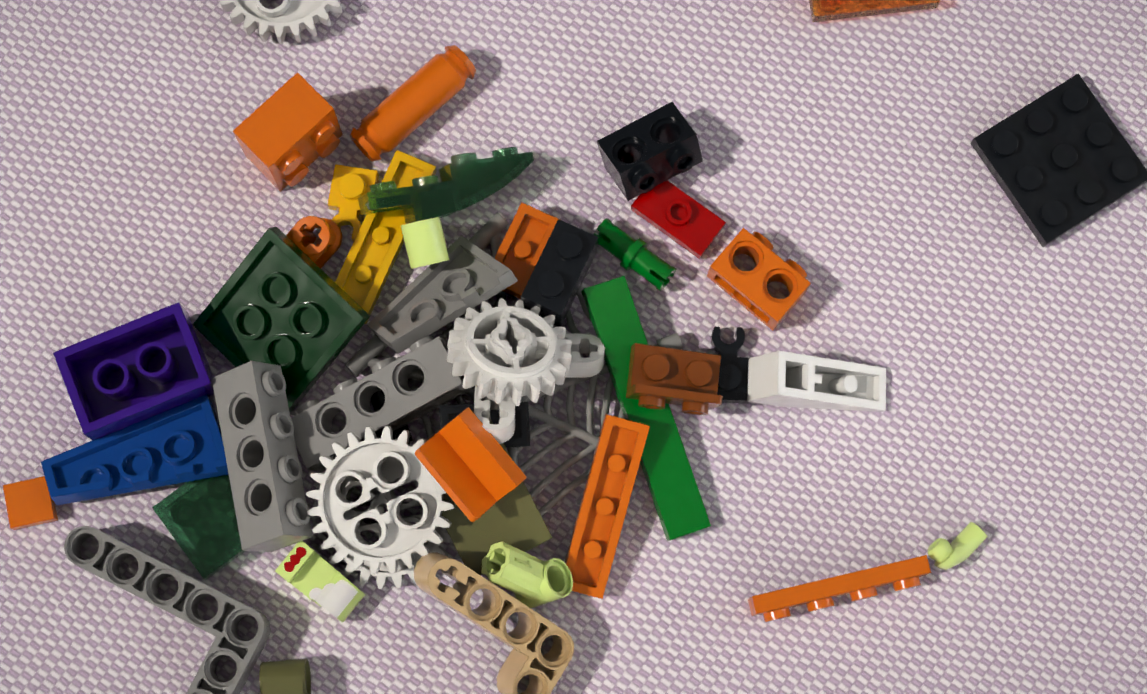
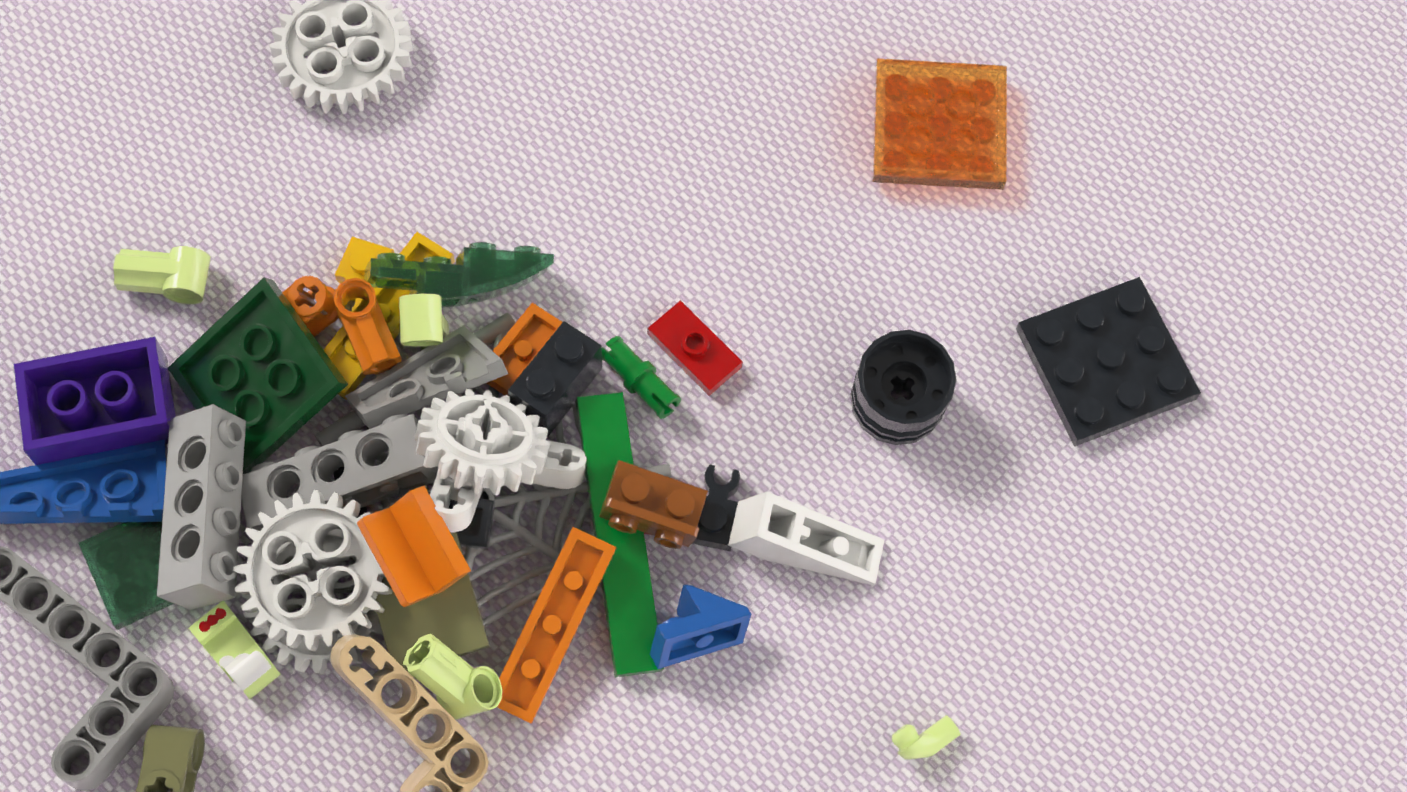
camera: 10 degrees right, 10 degrees down
(178, 232) = (175, 275): none -> yellowish green piece
(289, 133) = (309, 193): orange brick -> none
(374, 259) = (366, 328): none -> orange piece
(413, 103) = (444, 190): orange axle -> none
(650, 151) = (676, 275): black brick -> none
(739, 481) = (702, 627): none -> blue slope
(750, 287) = (755, 428): orange brick -> none
(858, 584) = (810, 757): orange plate -> none
(905, 220) = (898, 363): none -> black wheel

